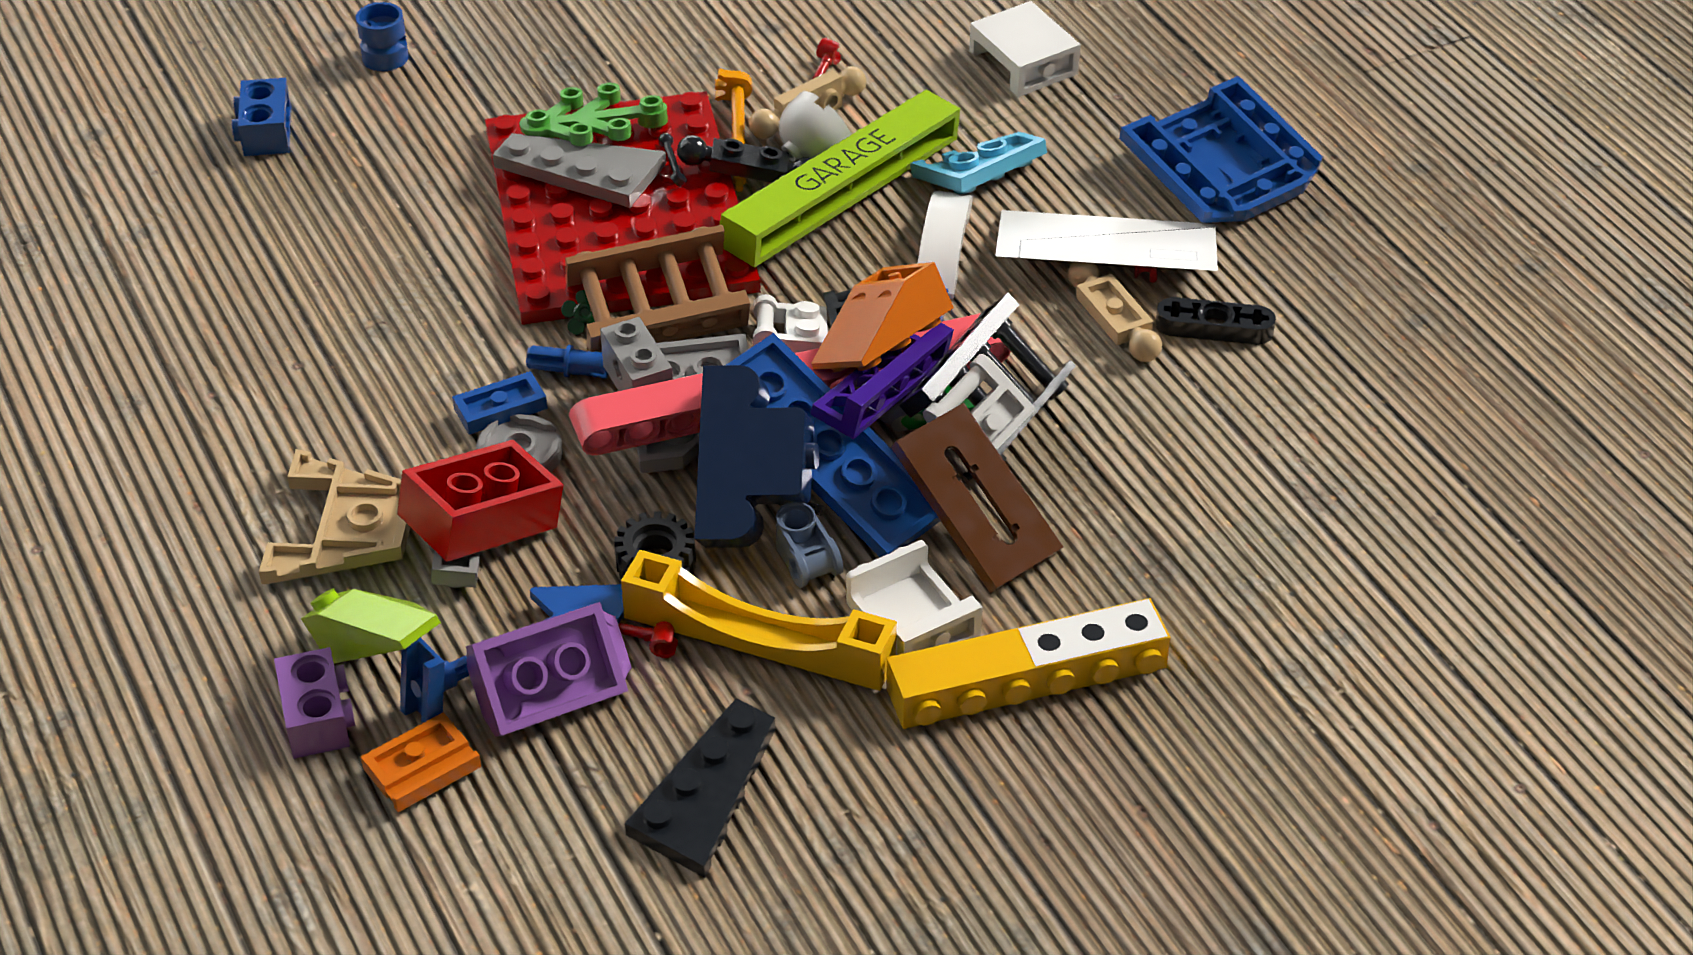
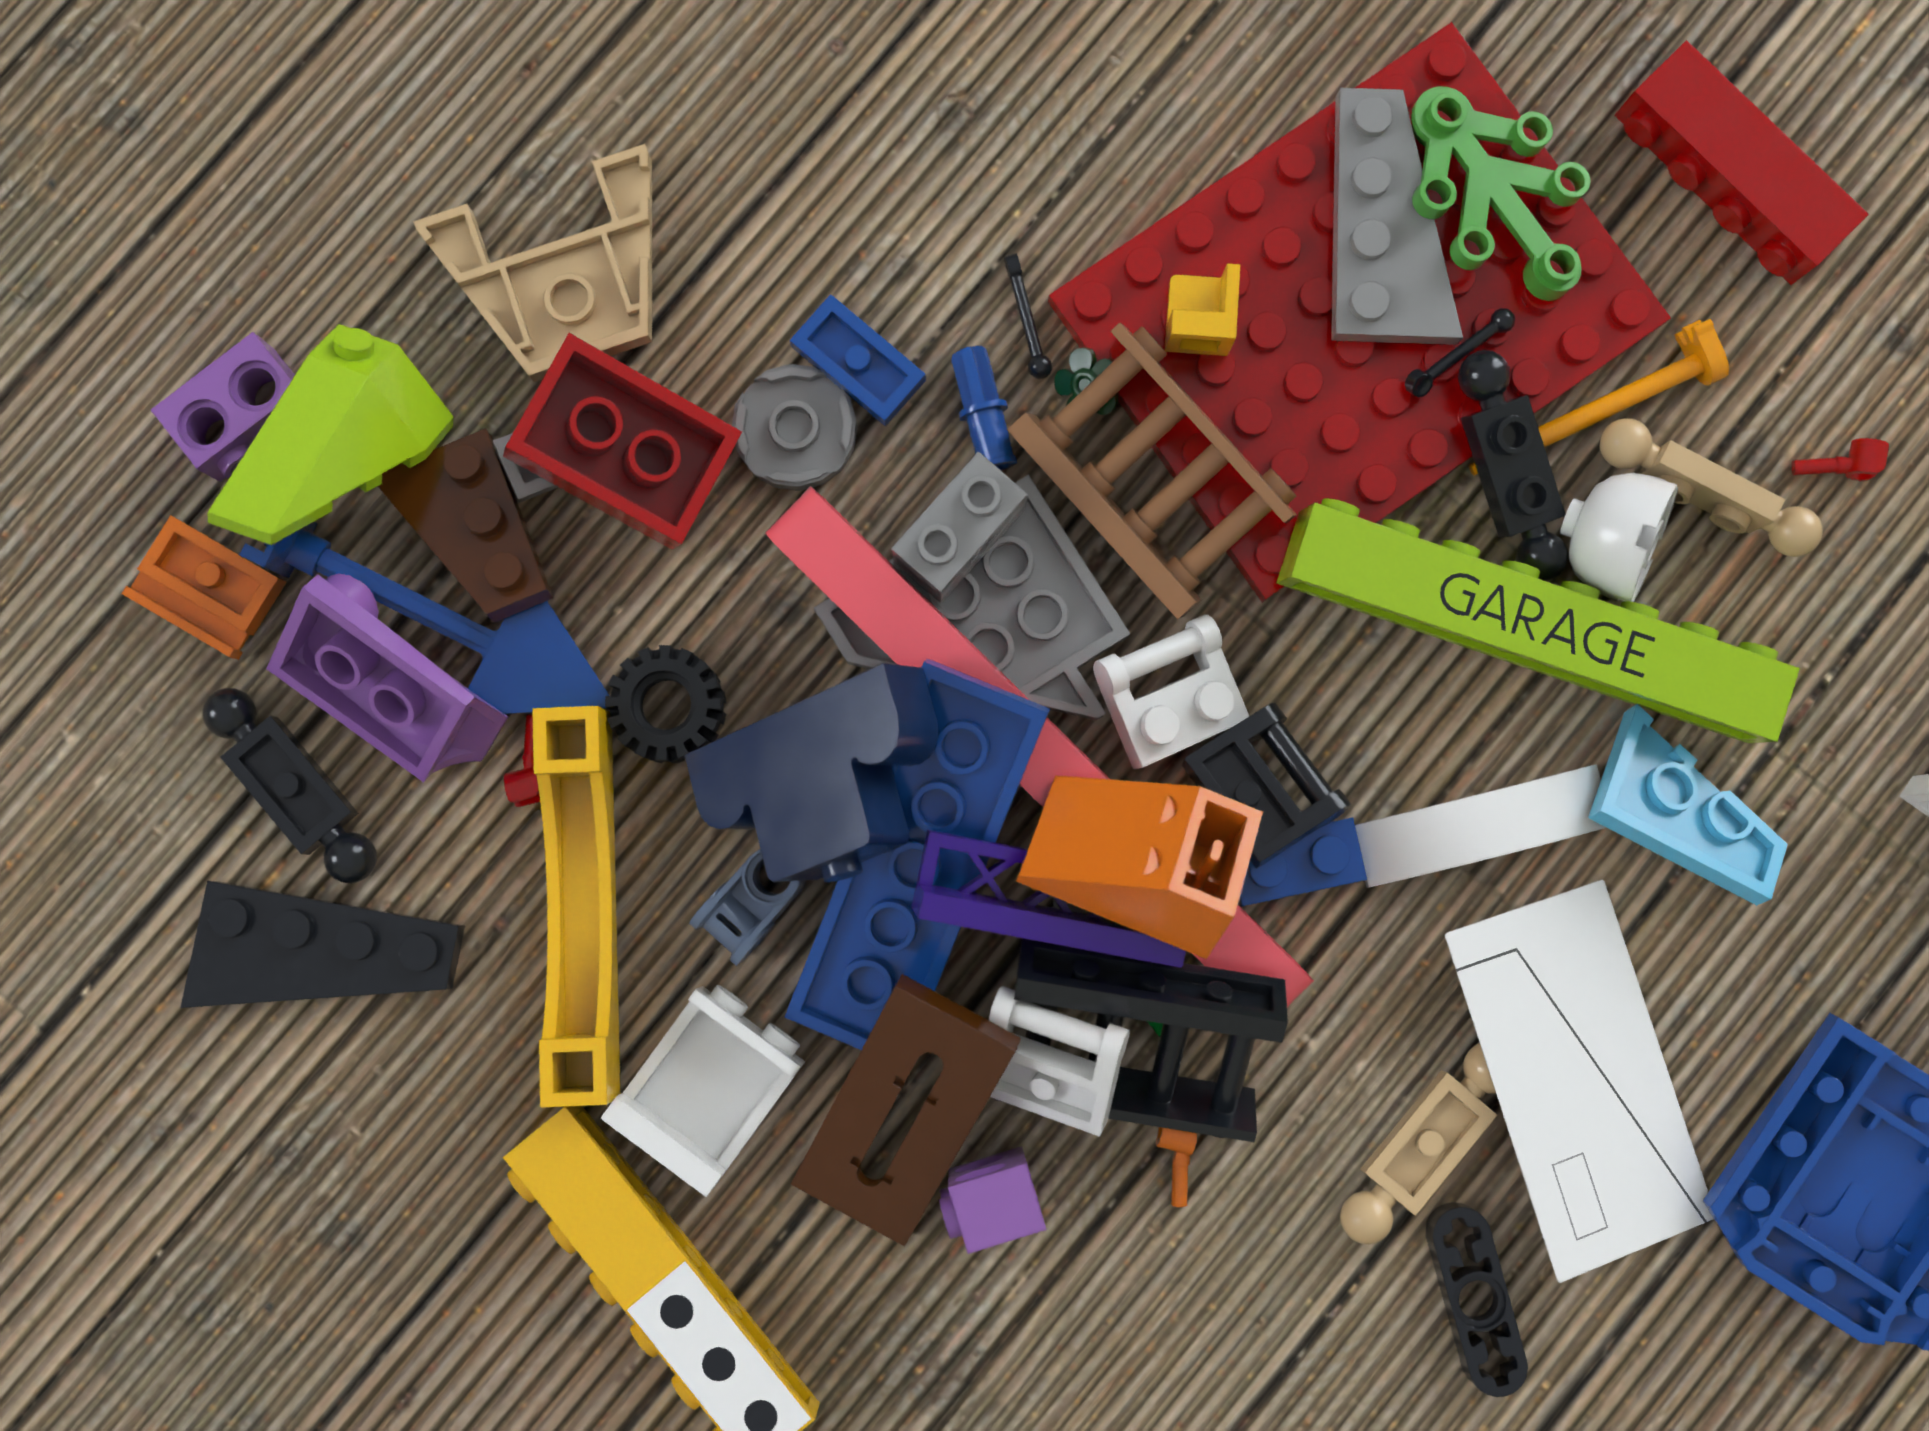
camera: 65 degrees right, 40 degrees up
(483, 602) = (472, 523): none -> reddish brown wing
(492, 327) = (1039, 365): none -> black hinge
(581, 233) = (1203, 313): none -> yellow panel
(586, 757) = (289, 785): none -> black plate
(640, 43) = (1739, 164): none -> red brick
(1053, 472) = (991, 1201): none -> medium lavender brick
(1060, 407) = (1183, 1145): none -> orange hand

